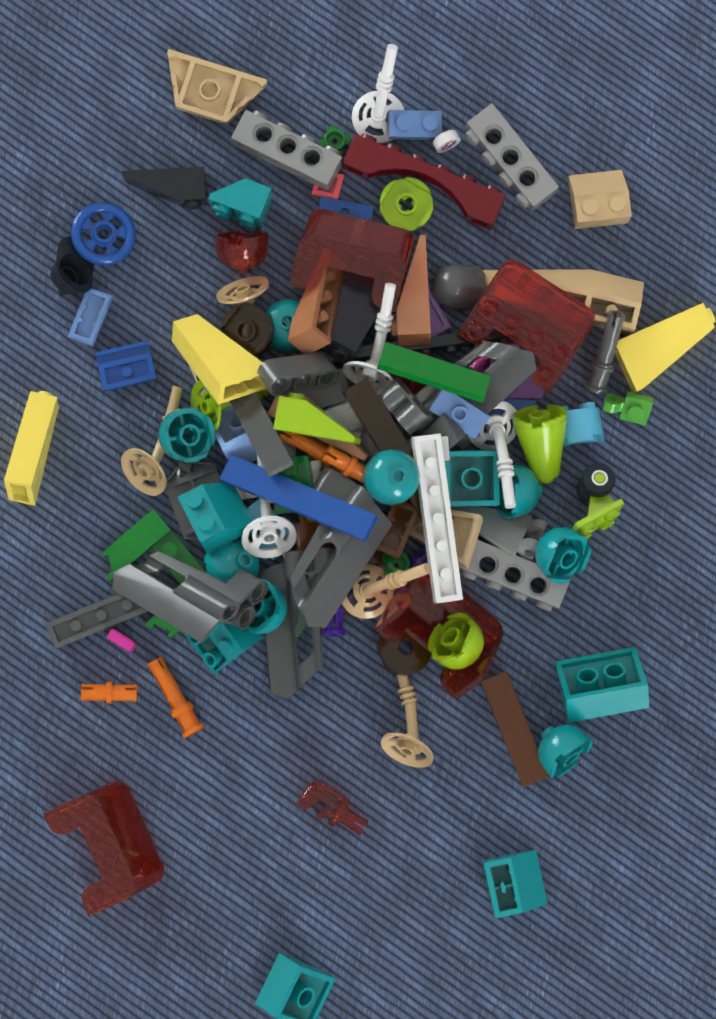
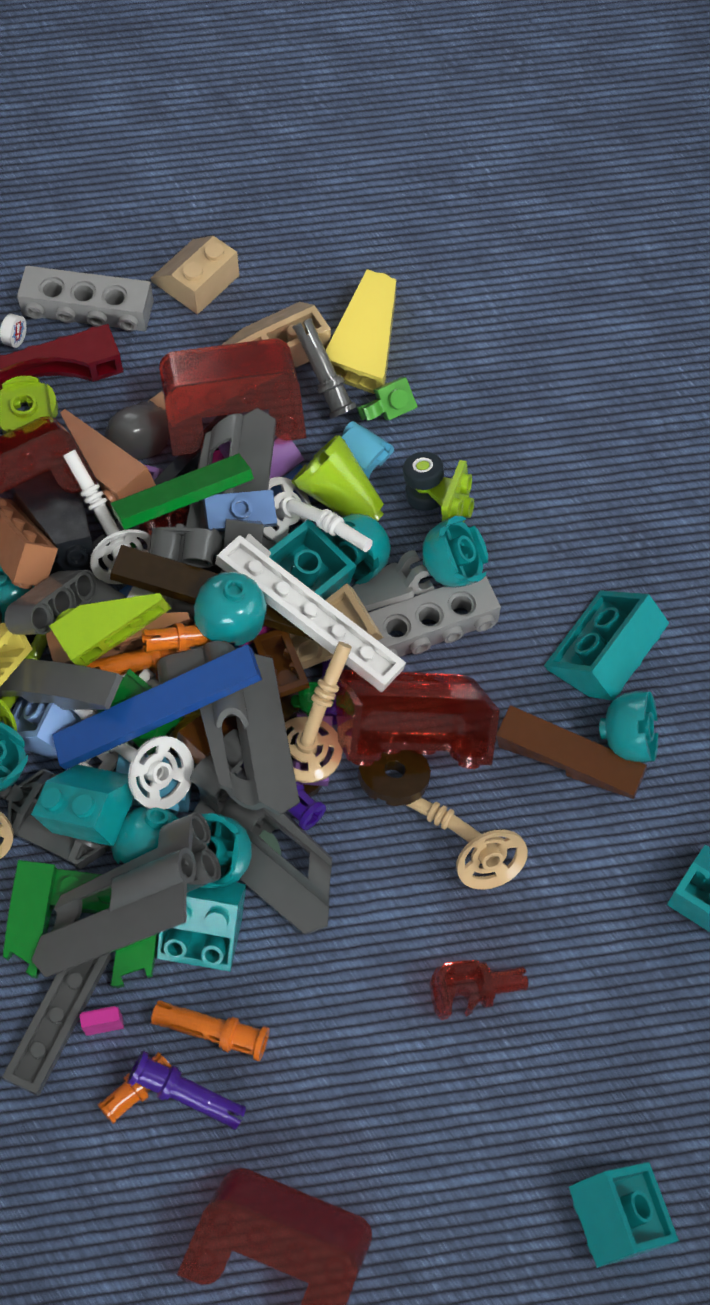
camera: 40 degrees left, 20 degrees down
(126, 710) = (170, 1084): none -> dark purple pin
(456, 642) = (438, 713): lime cylinder -> none

